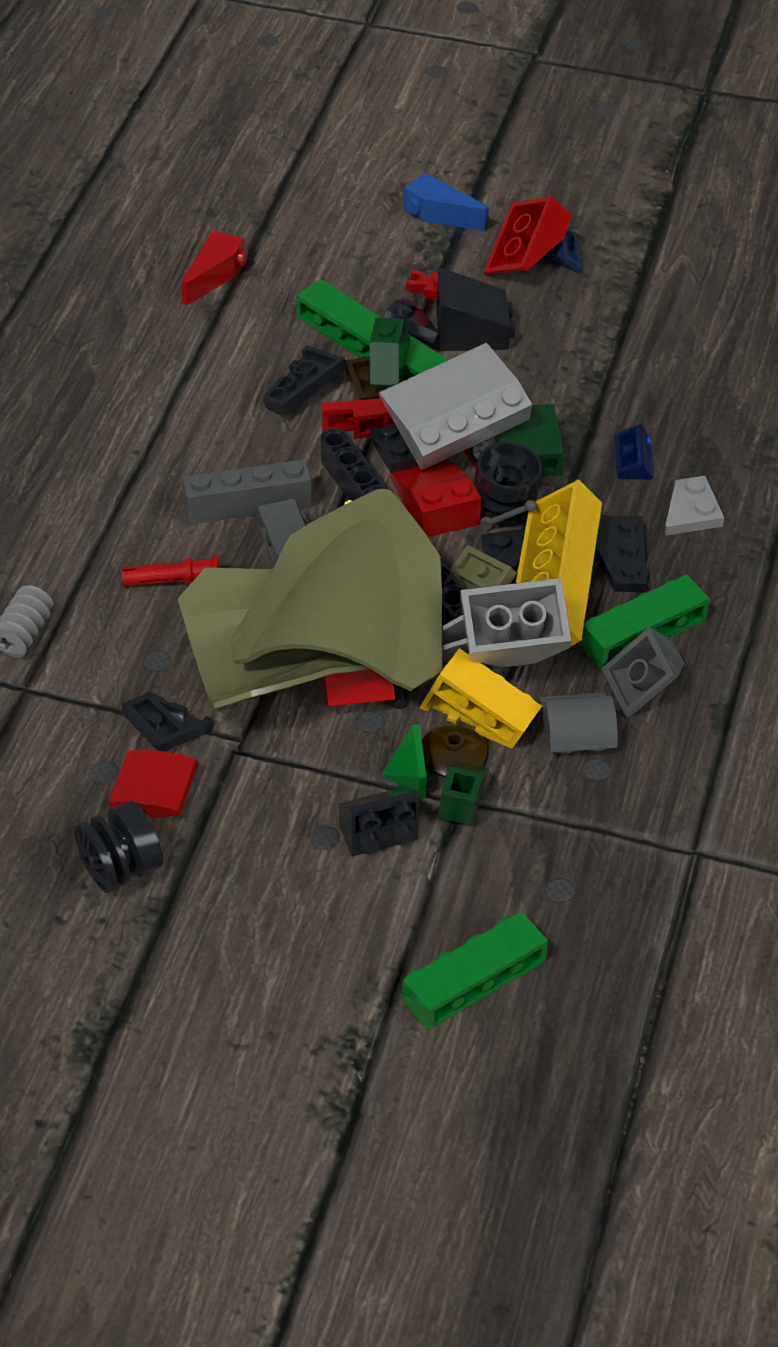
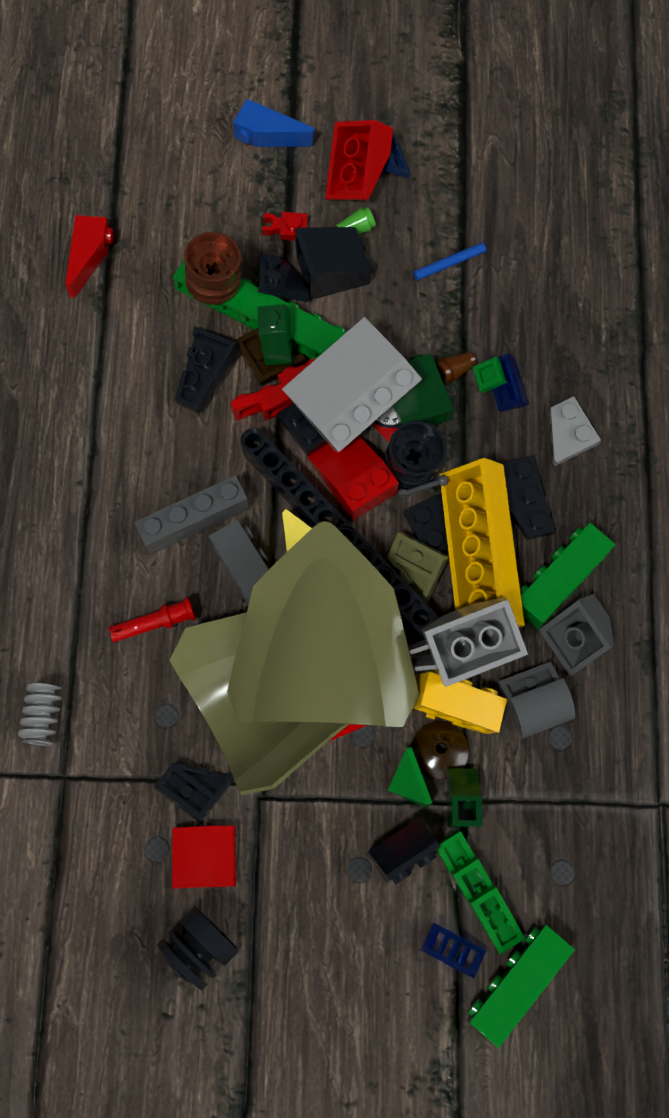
camera: 15 degrees left, 25 degrees up
(339, 283) = (212, 268): none -> copper wheel
(393, 906) = (430, 938): none -> clear blue slope
(455, 877) = (479, 892): none -> green slope
(517, 292) = (361, 219): none -> bright green cone
(578, 426) = (454, 366): none -> reddish brown cone
(602, 344) = (449, 261): none -> blue bar
(615, 440) = (489, 374): none -> green tile

